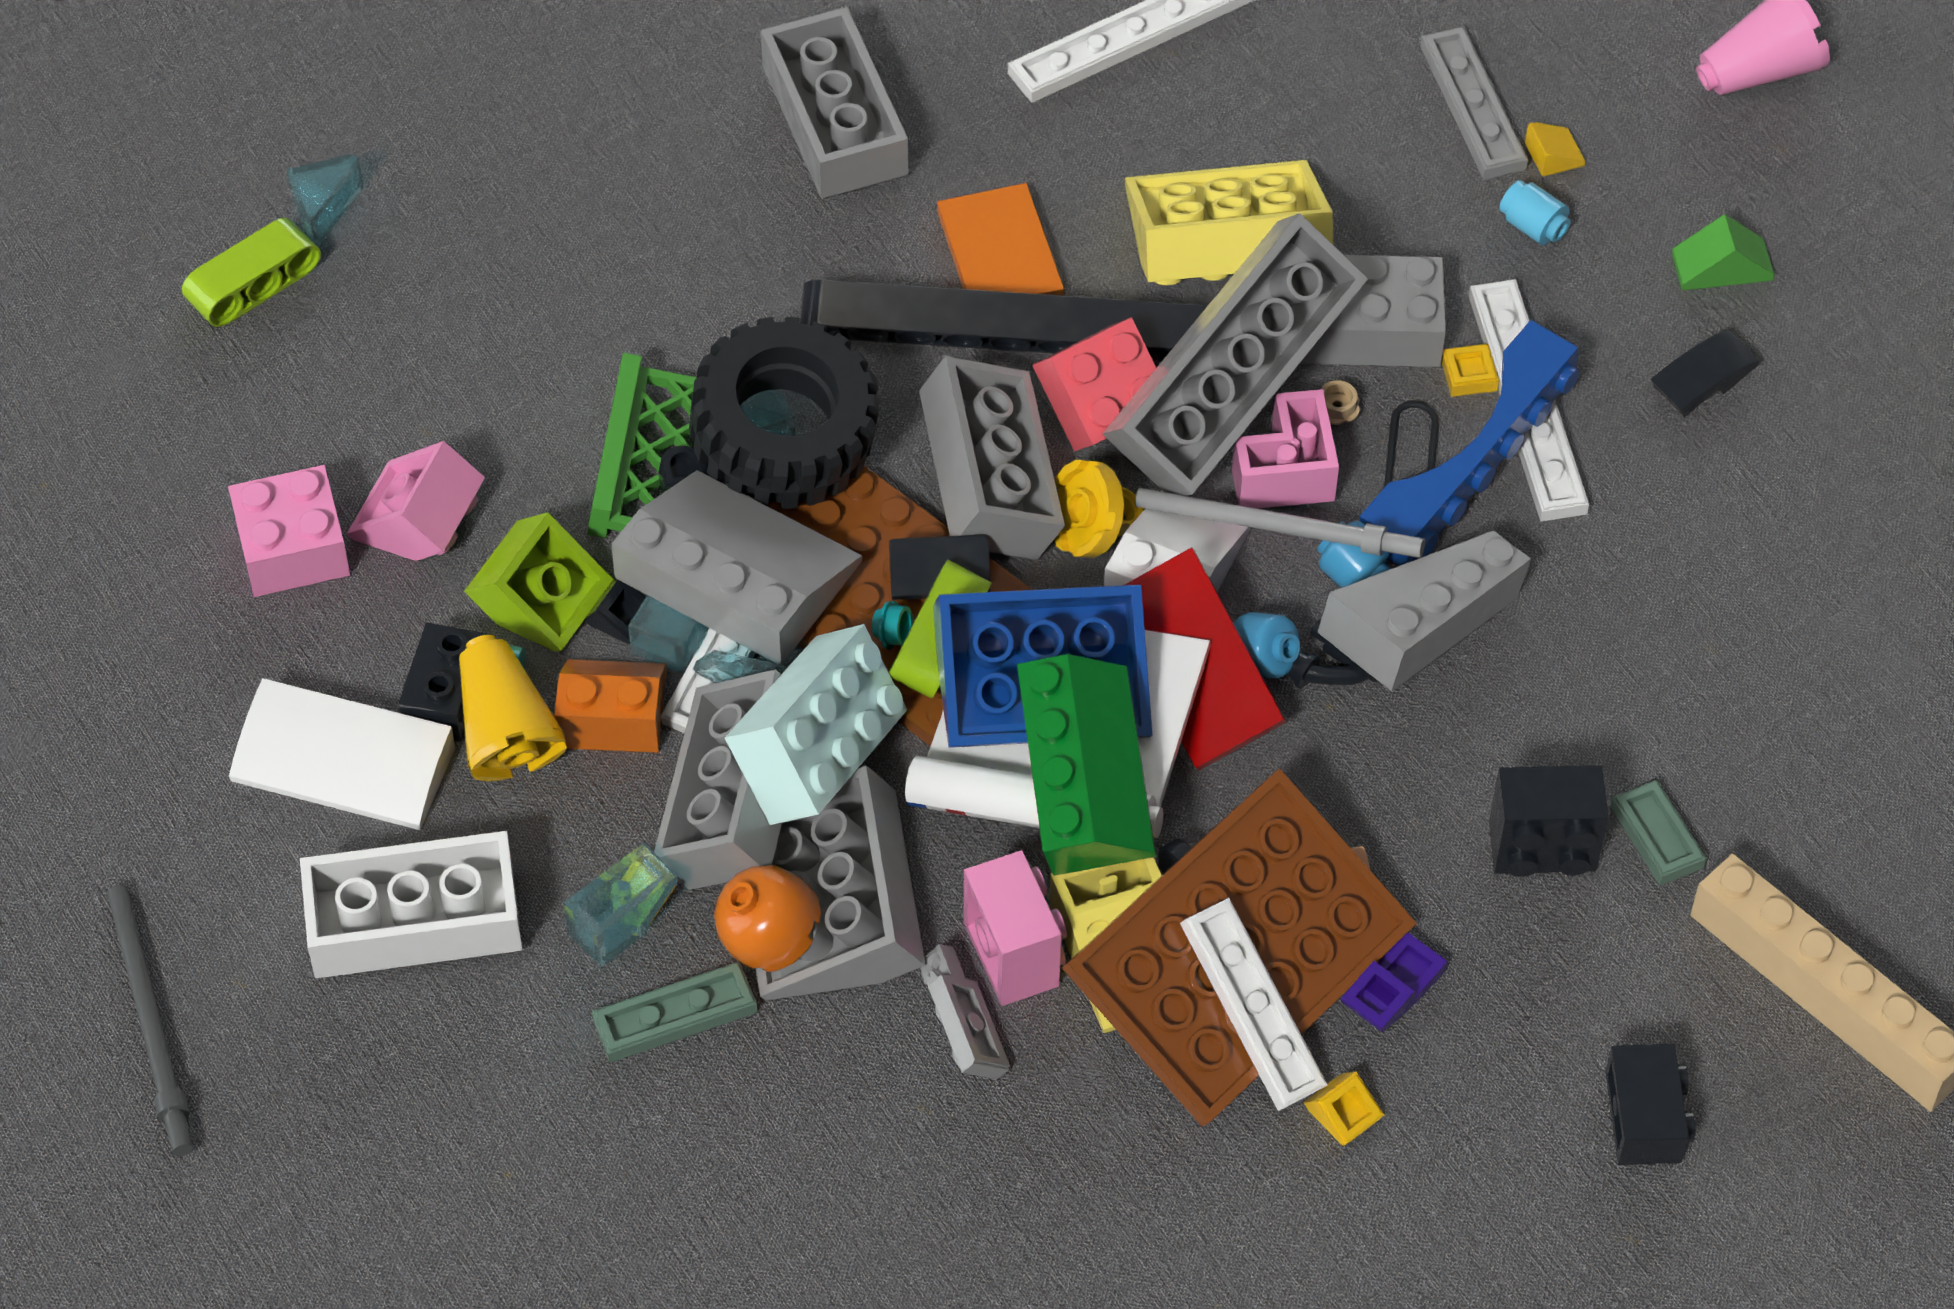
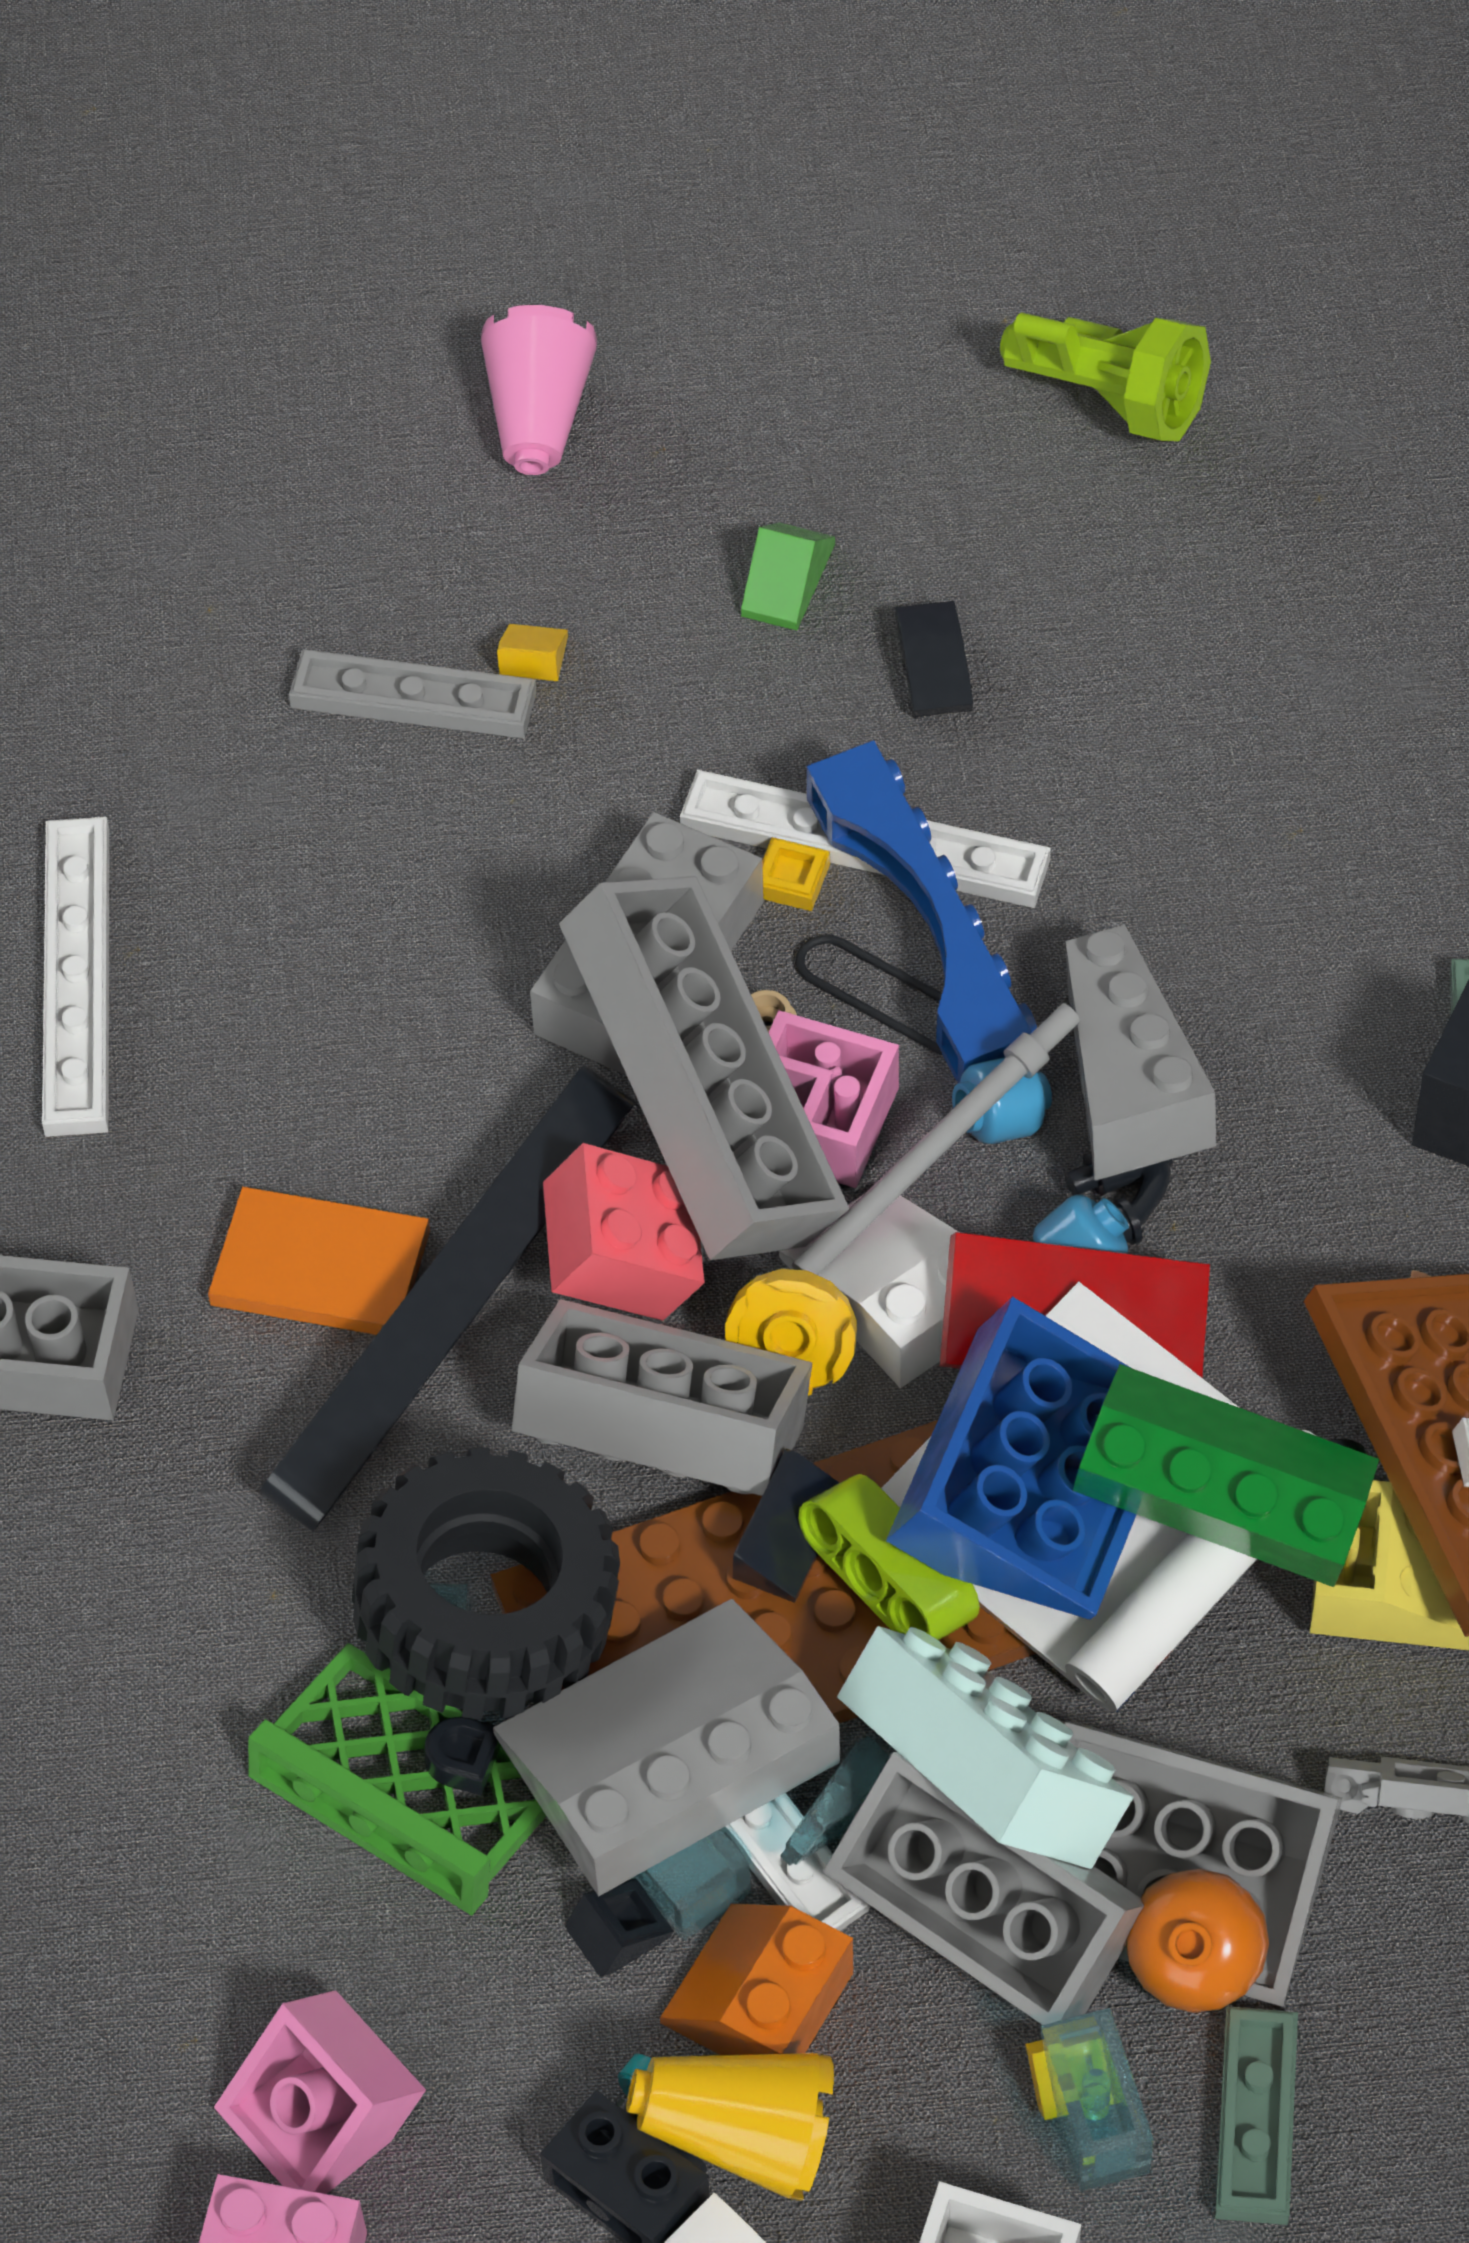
camera: 60 degrees left, 0 degrees up
(539, 582) = (531, 1998): lime slope -> none
(892, 624) = (846, 1613): teal plate -> none
(1013, 927) = (1355, 1673): bright pink brick -> none
(1217, 217) = (435, 1003): light yellow slope -> none
(1535, 212) = (620, 705): medium azure brick -> none

